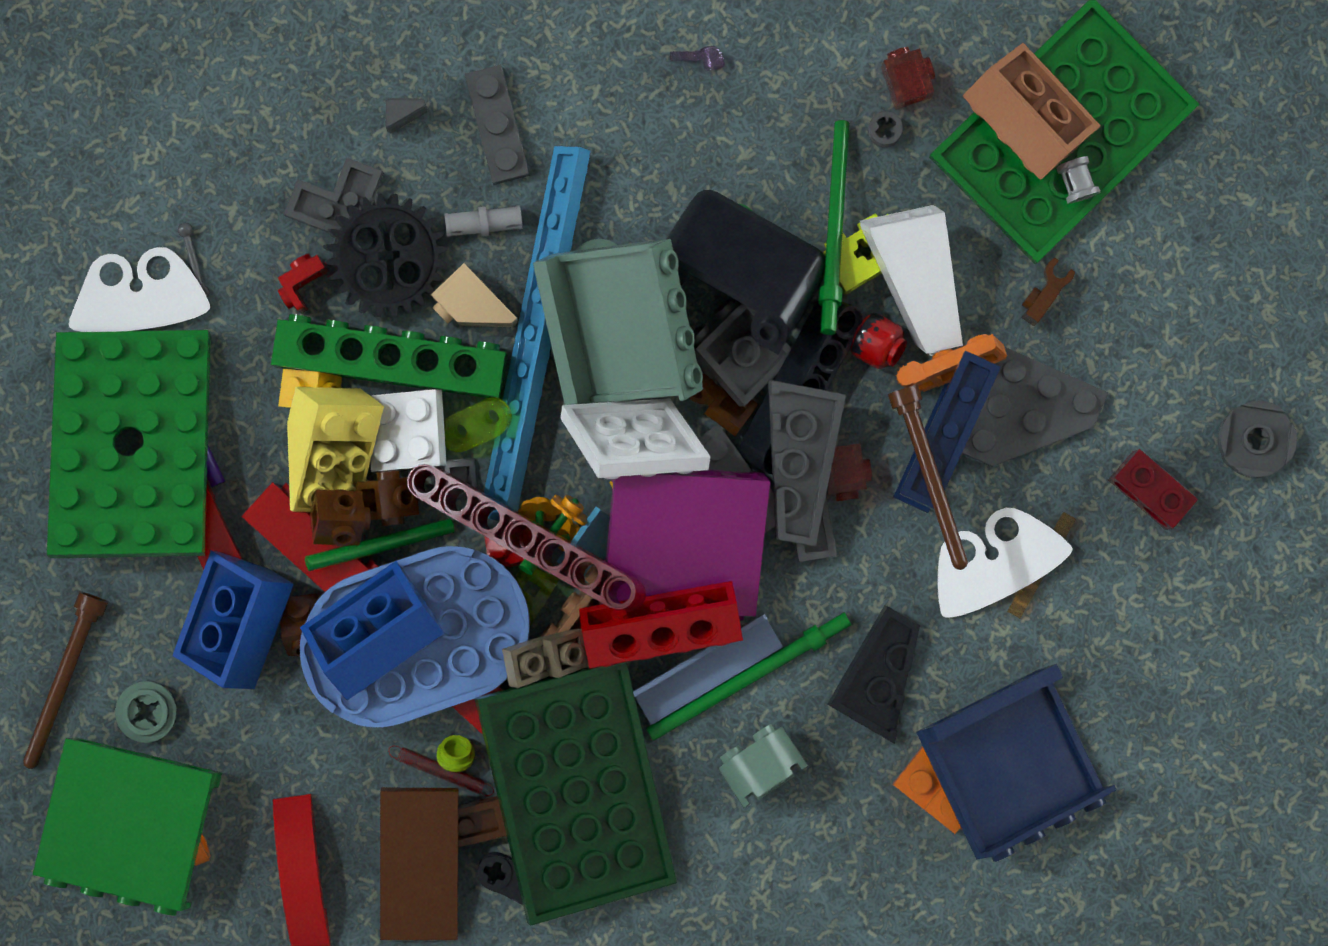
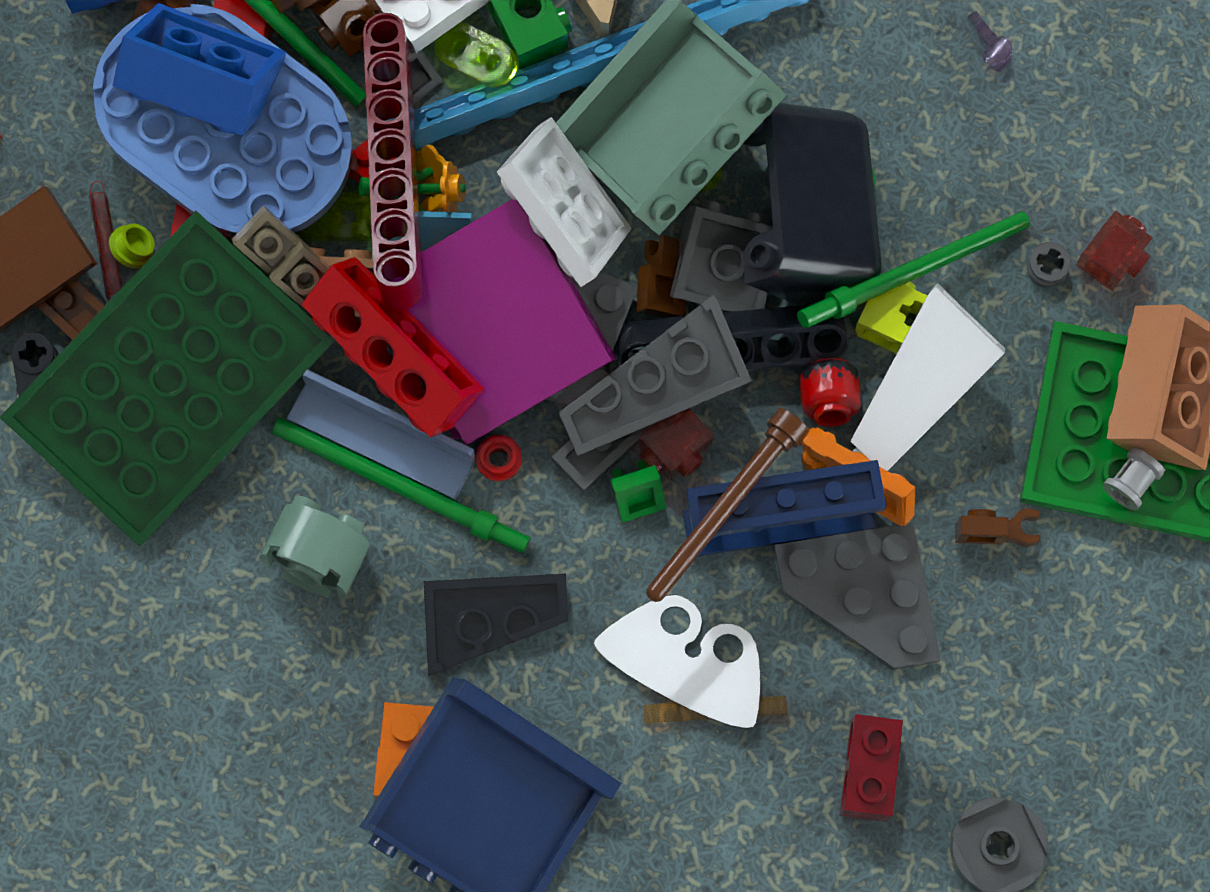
camera: 50 degrees right, 10 degrees down
(785, 602) = (494, 444): none -> red plate
(862, 519) = (638, 492): none -> green tile

